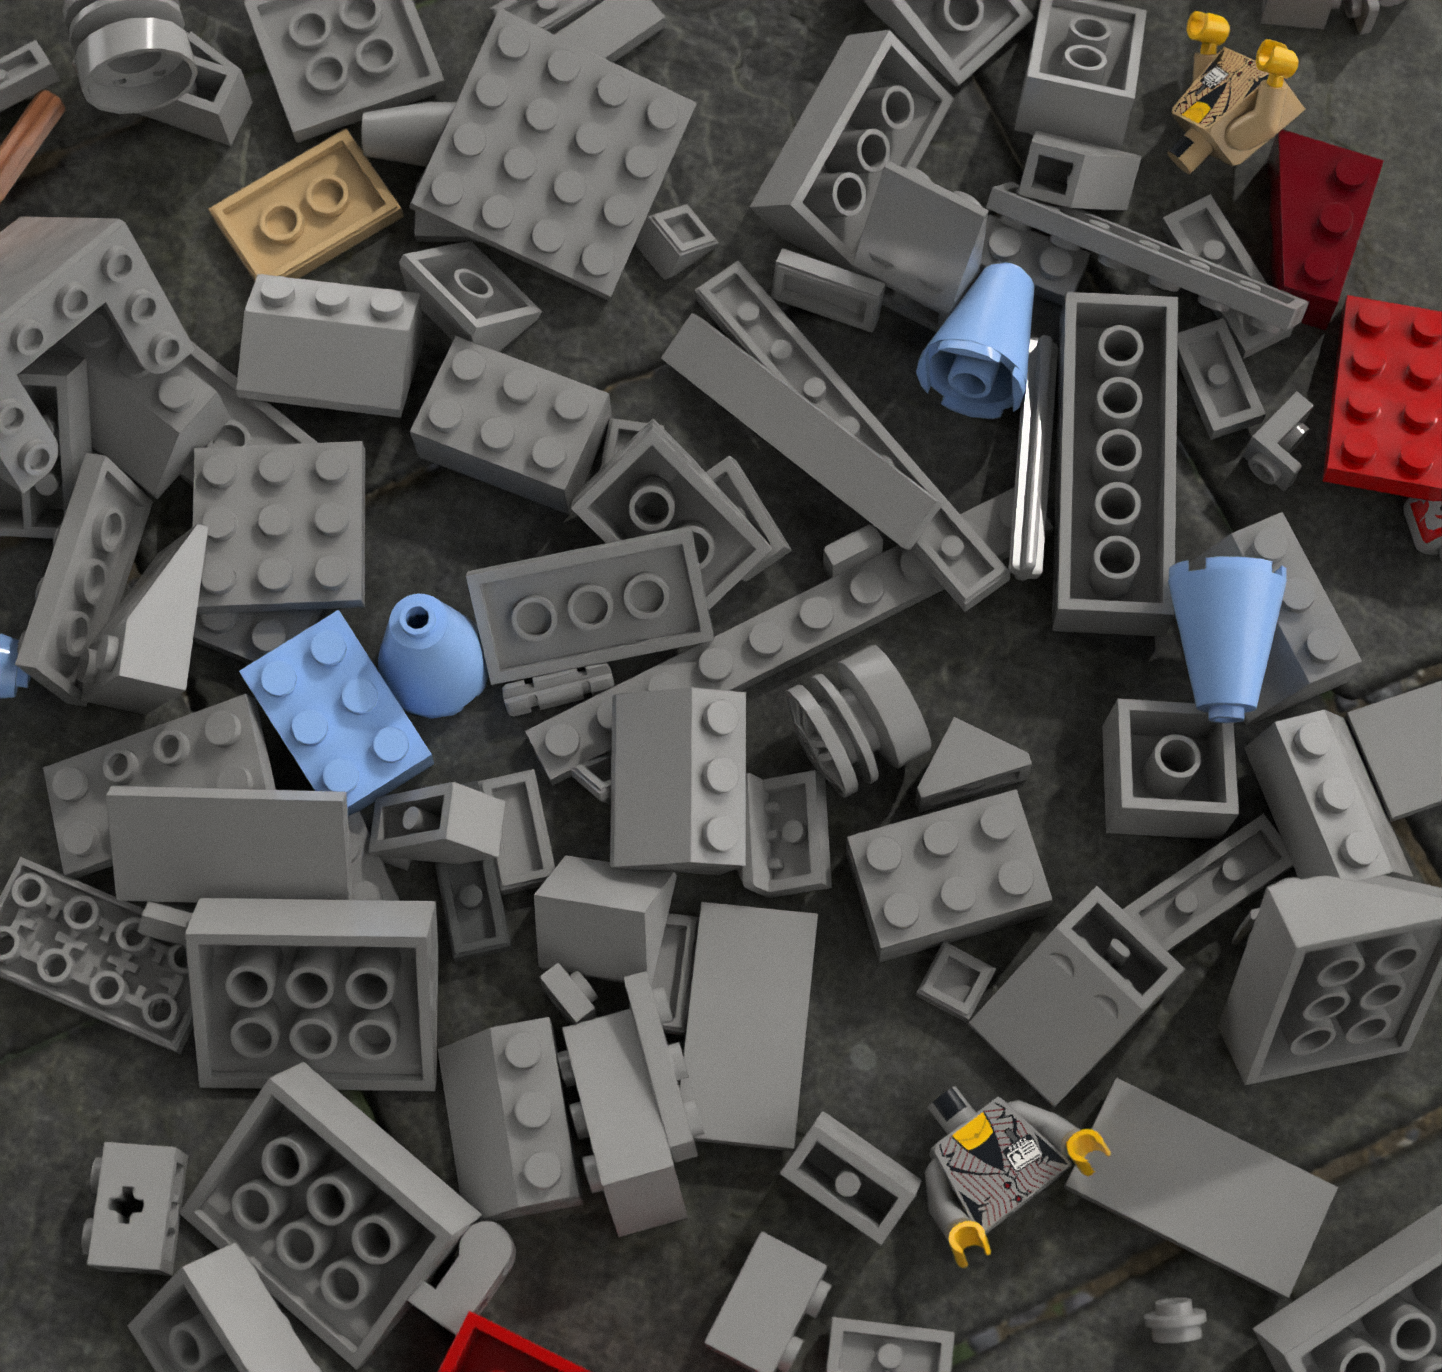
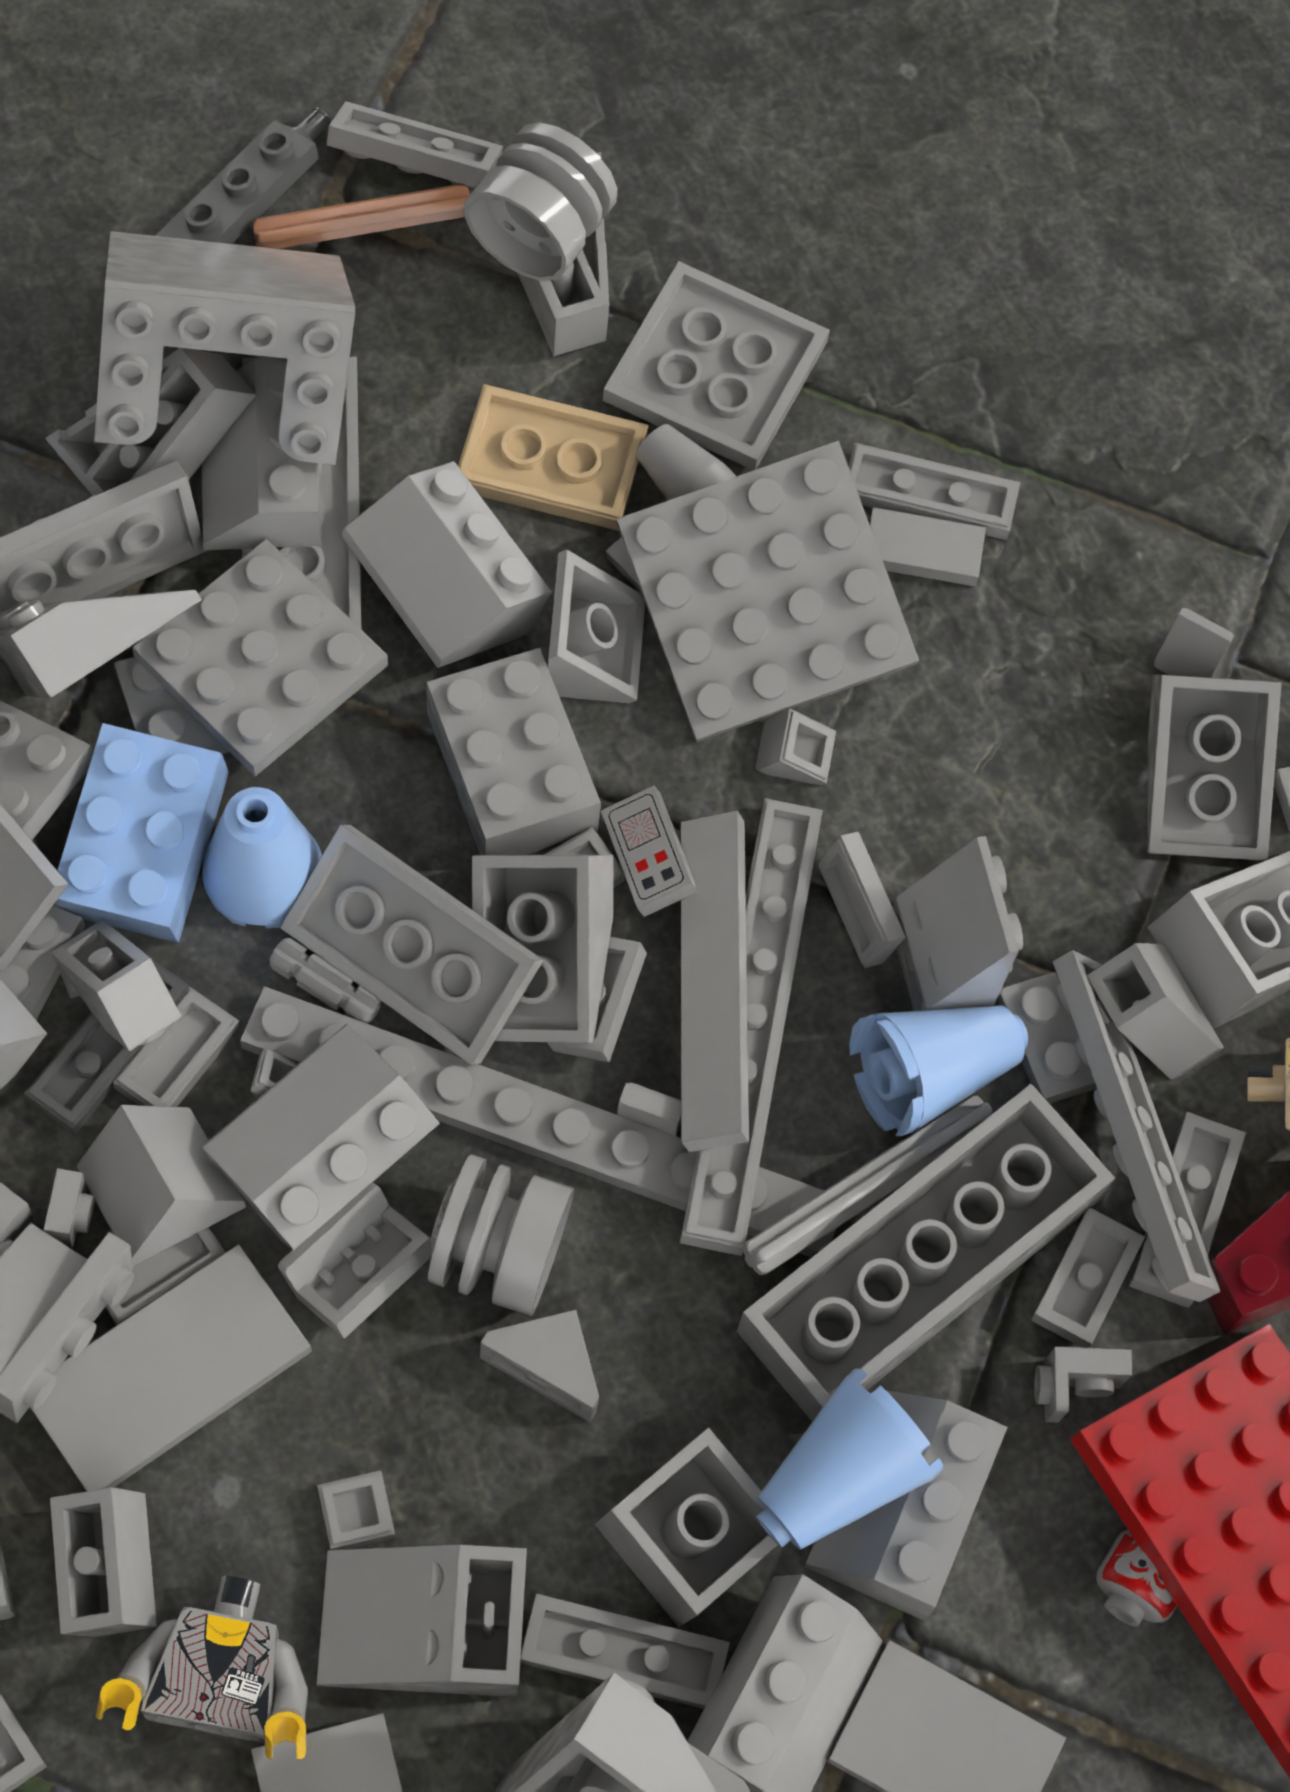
camera: 35 degrees right, 5 degrees down
(665, 395) = (649, 851): none -> light grey tile
(866, 111) = (1039, 803): light grey slope -> none
(948, 875) = (436, 1423): light grey brick -> none

